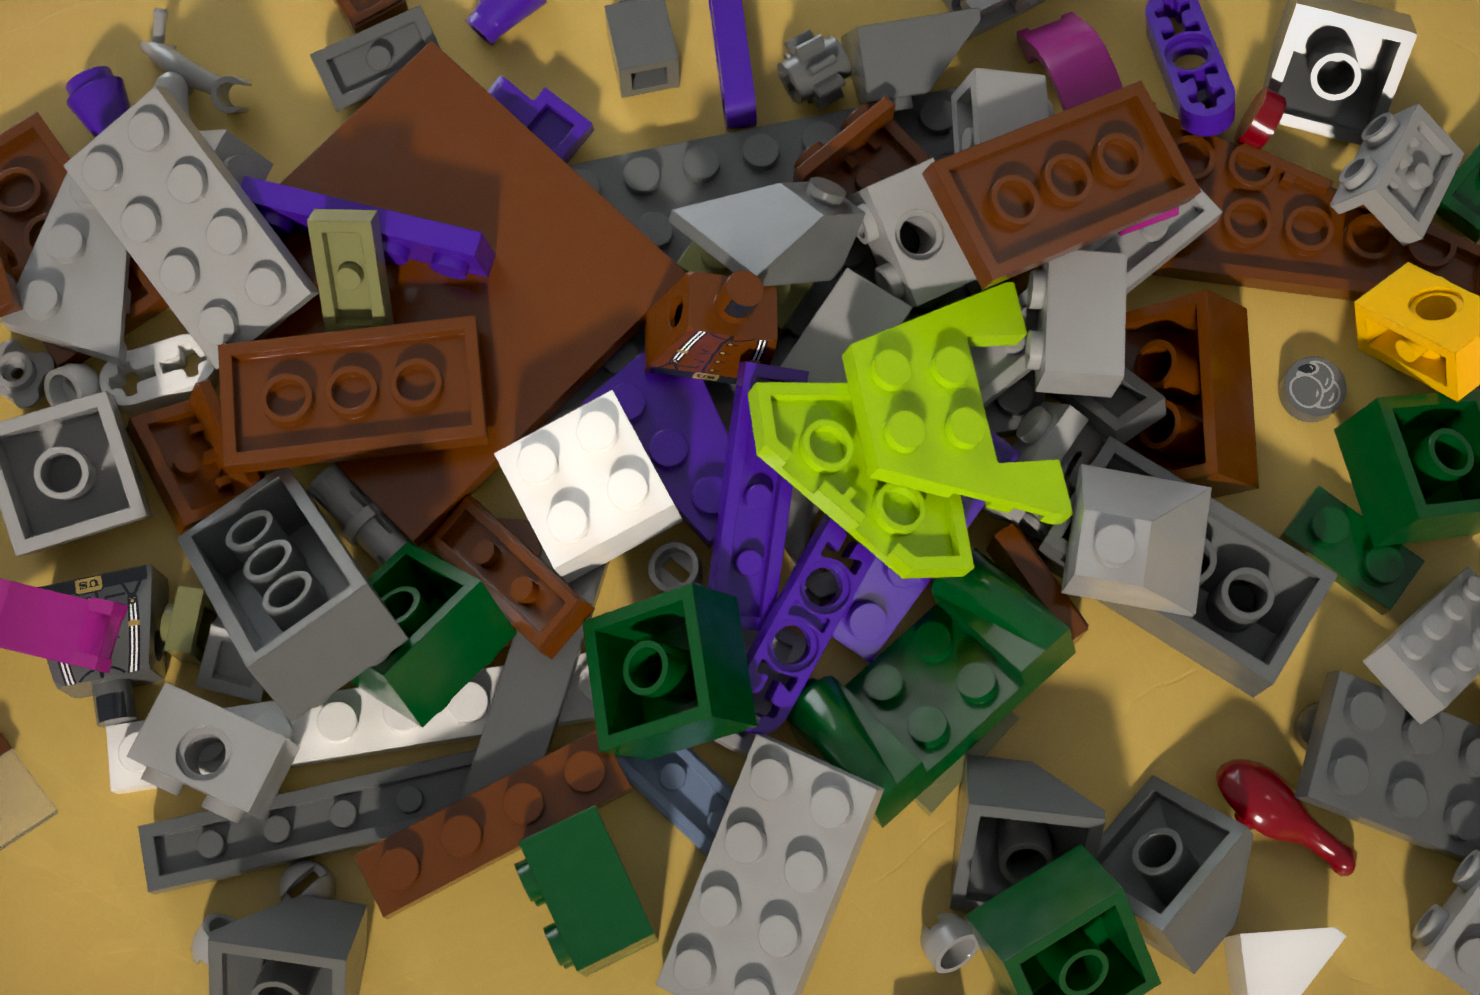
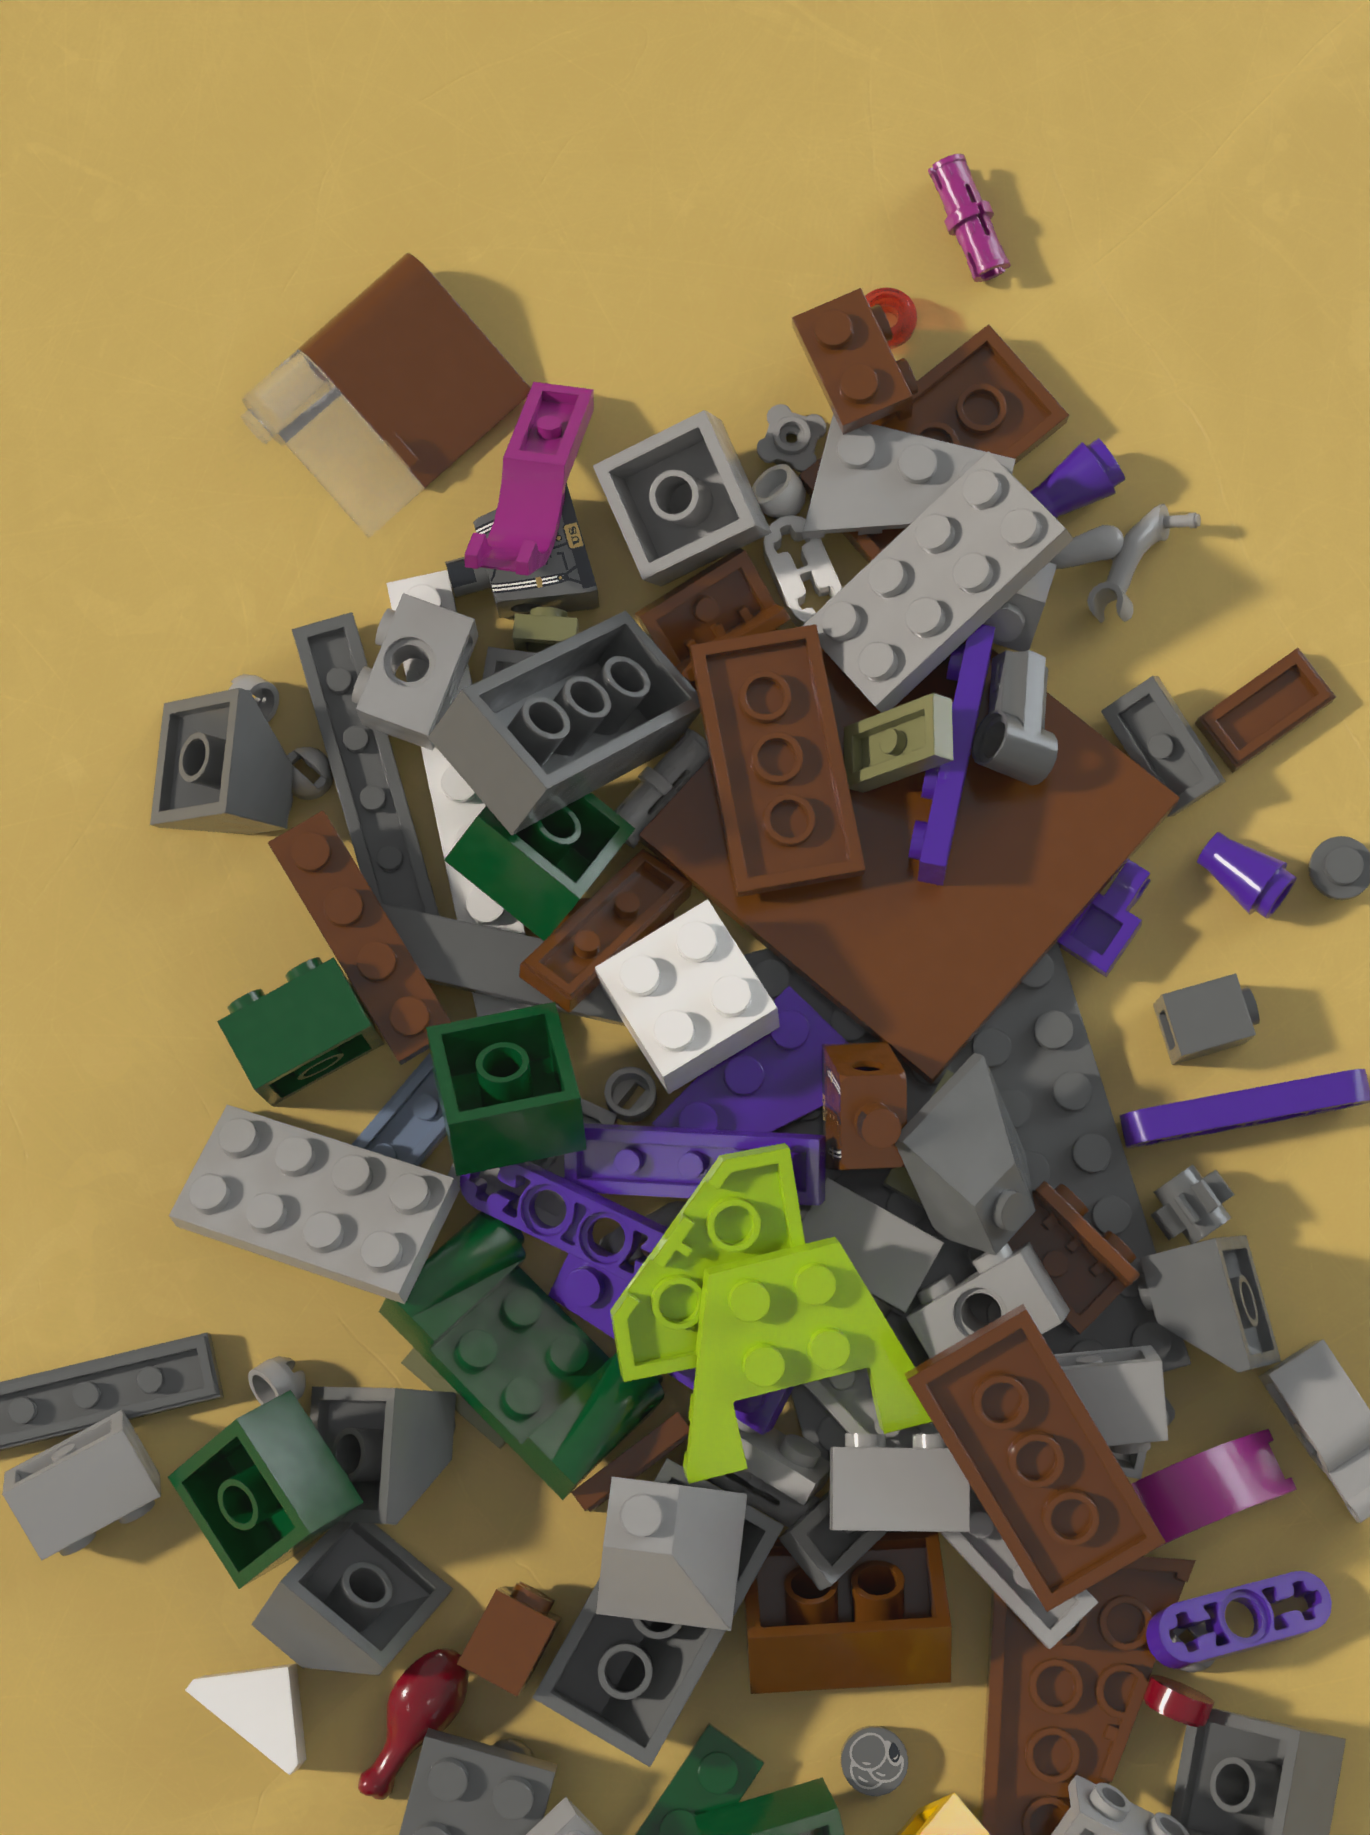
camera: 90 degrees right, 5 degrees up
(341, 169) = (1014, 732): none -> dark grey piece
(1212, 706) = (511, 1637): none -> reddish brown brick

